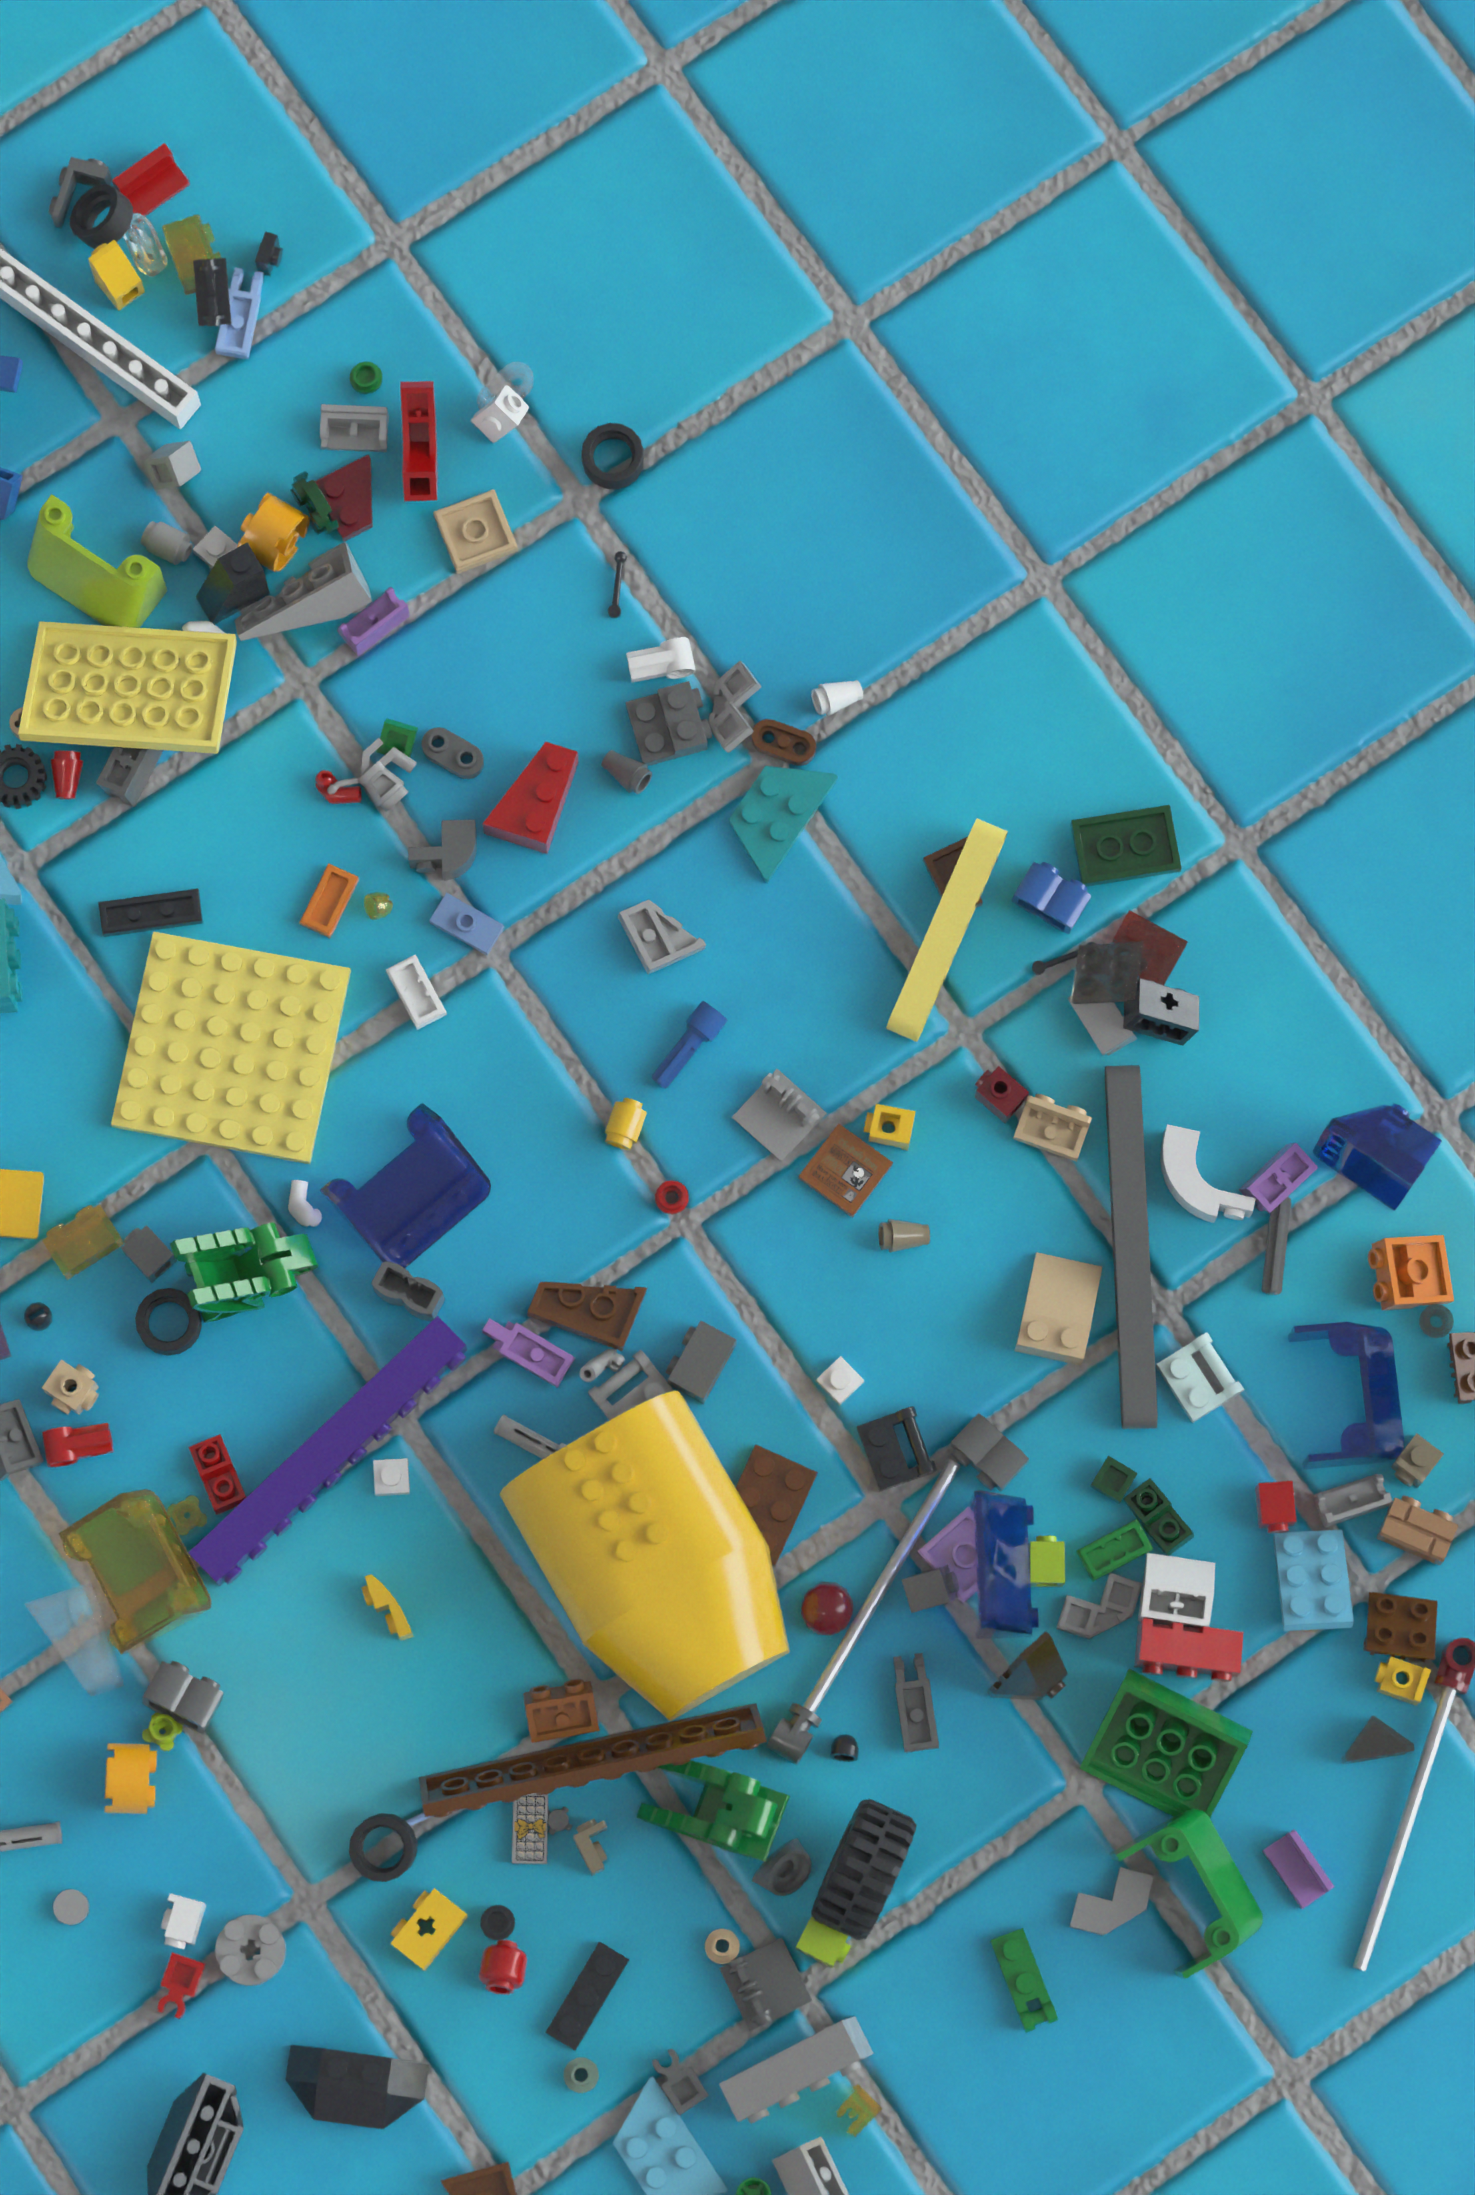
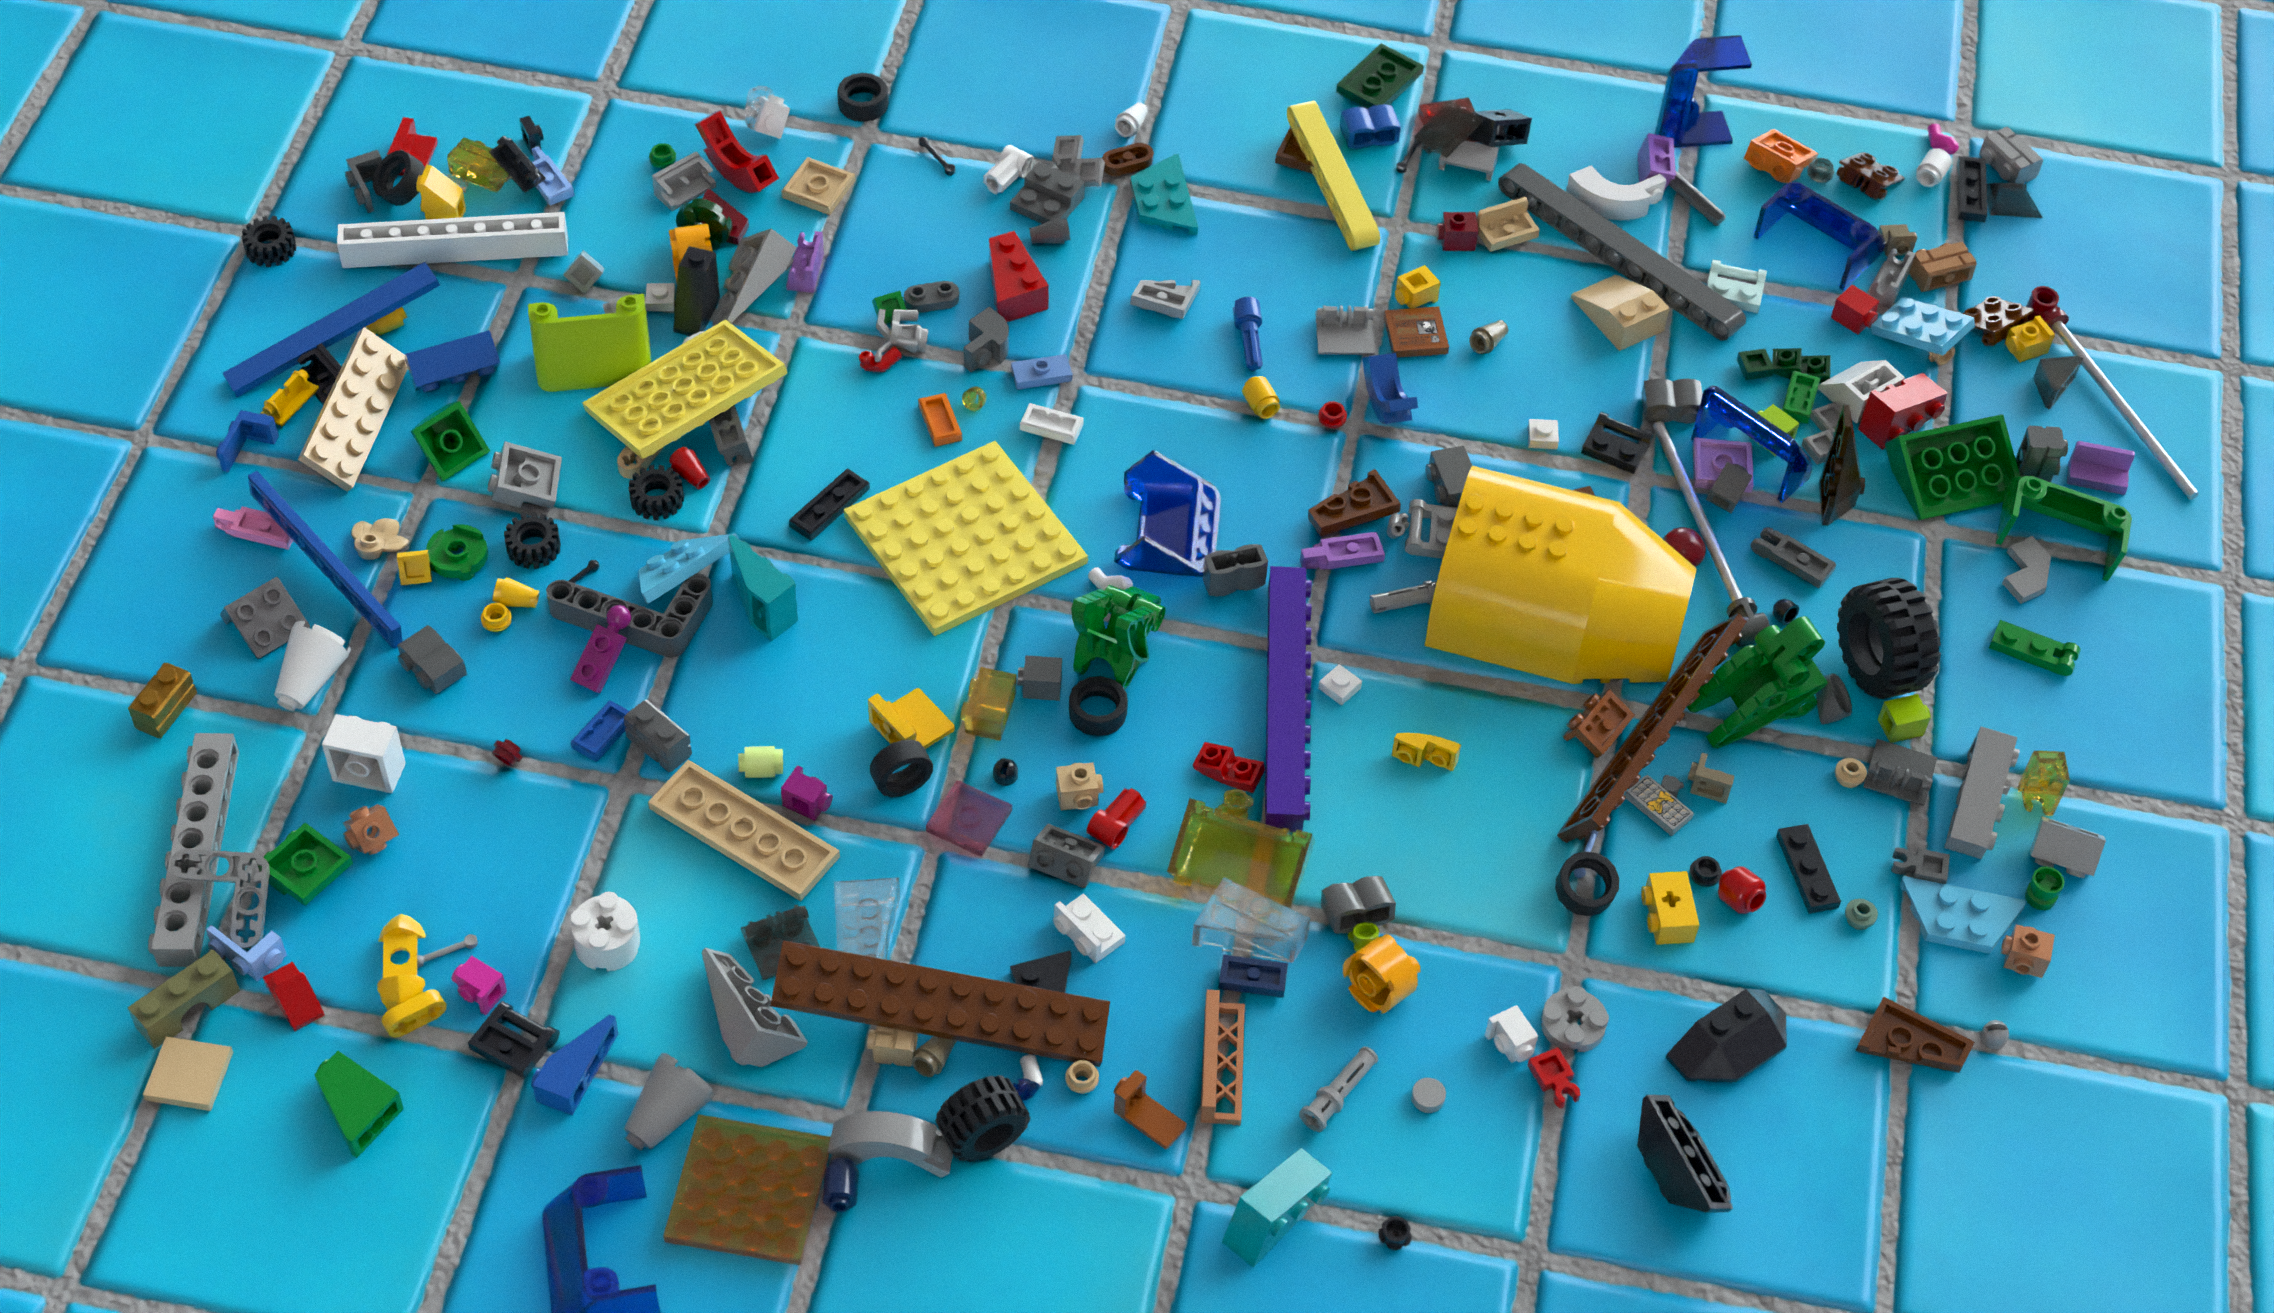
camera: 45 degrees left, 25 degrees down
(40, 1683) = (1253, 976): none -> dark blue plate
(739, 1218) = (1386, 390): none -> blue arch
(1245, 1811) = (2041, 452): none -> dark grey brick

